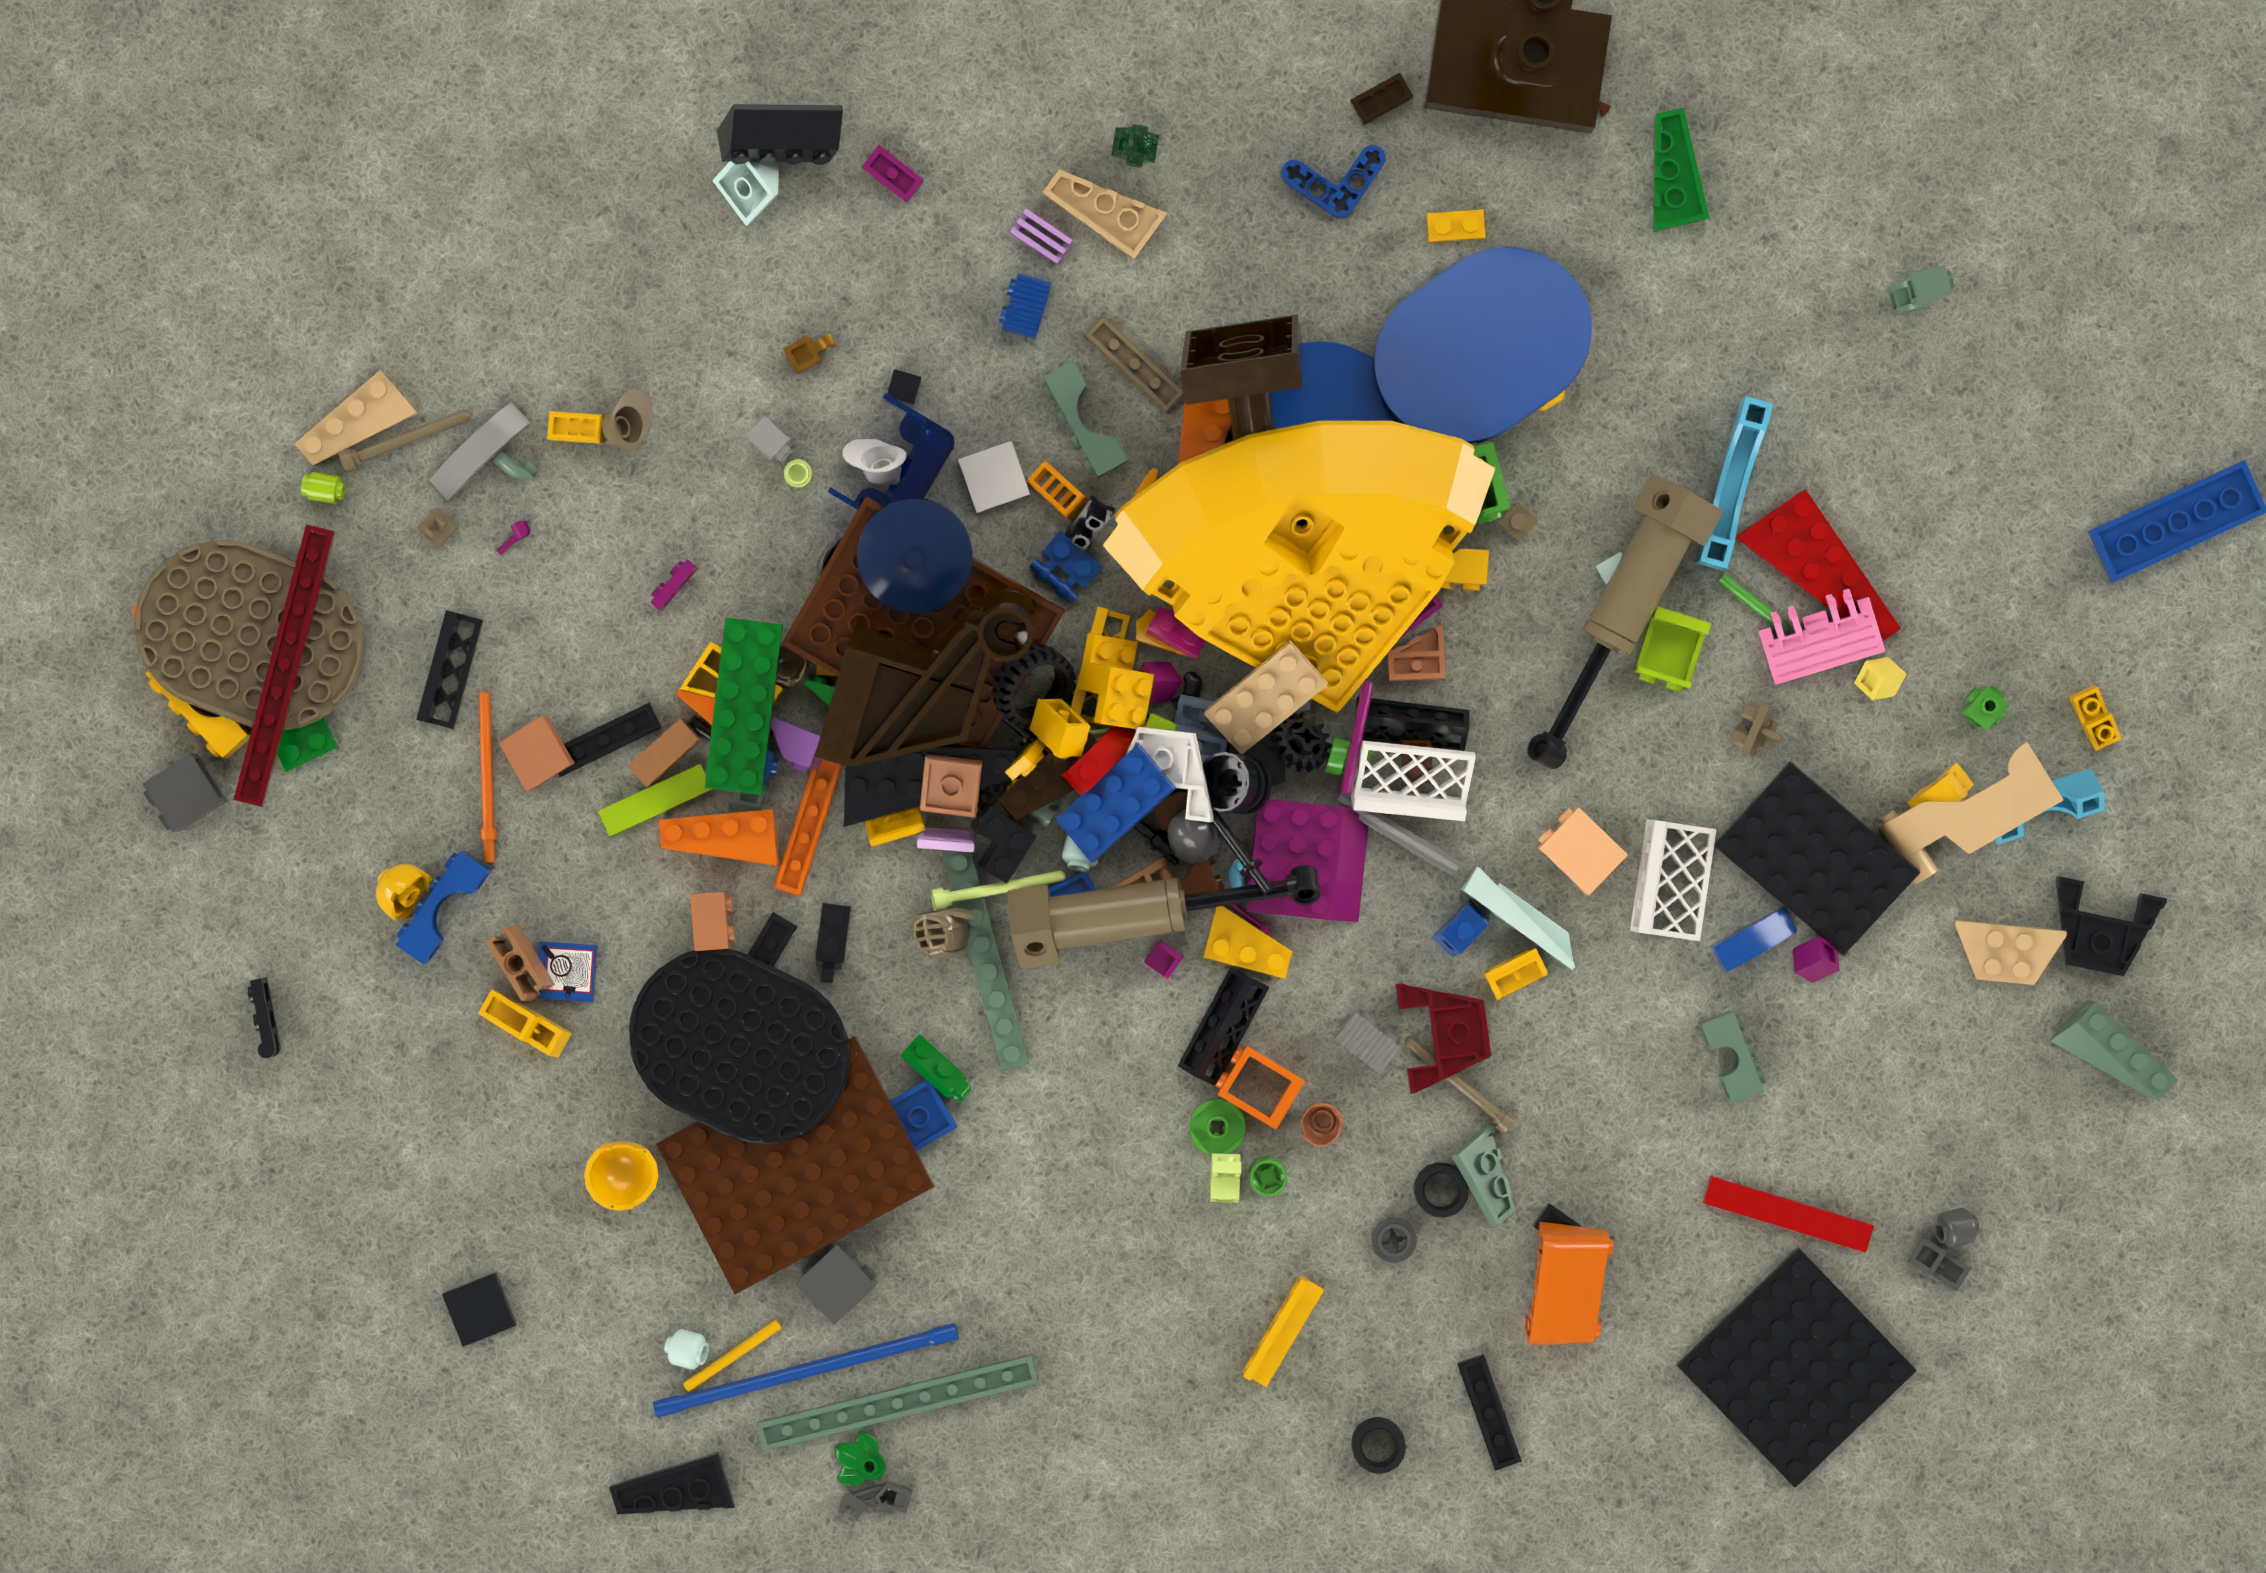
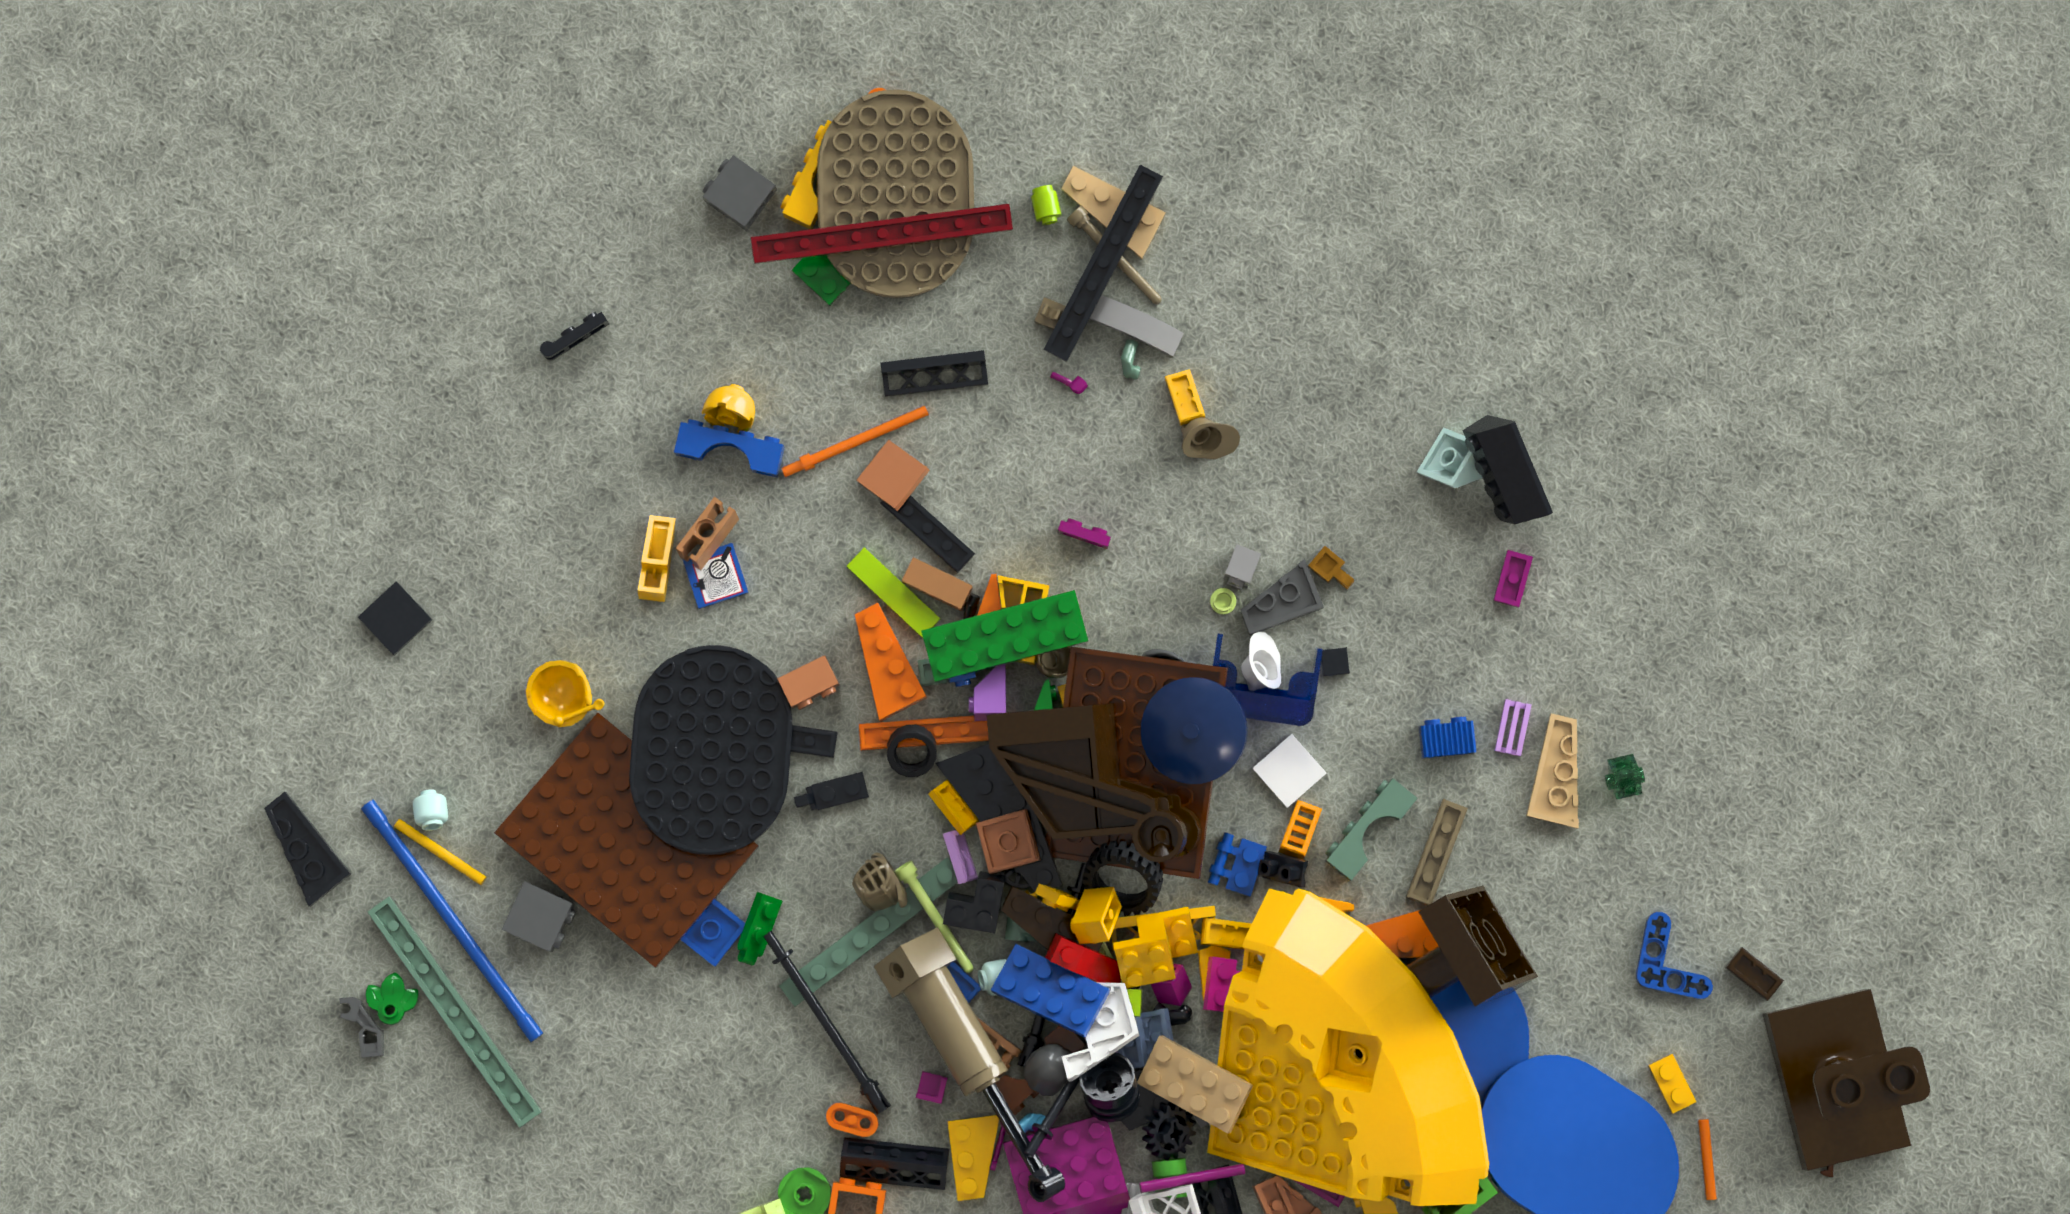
camera: 75 degrees right, 5 degrees down
(405, 453) = (1103, 263): none -> black plate
(648, 1140) = (598, 705): none -> yellow hinge
(823, 413) = (1284, 601): none -> dark grey wing
(841, 851) = (917, 732): none -> black tyre
(1128, 608) = (1224, 933): none -> yellow plate
(1137, 1022) = (867, 1085): none -> black bar
(1163, 1050) = (852, 1119): none -> orange plate
(1543, 222) = (1707, 1159): none -> orange bar

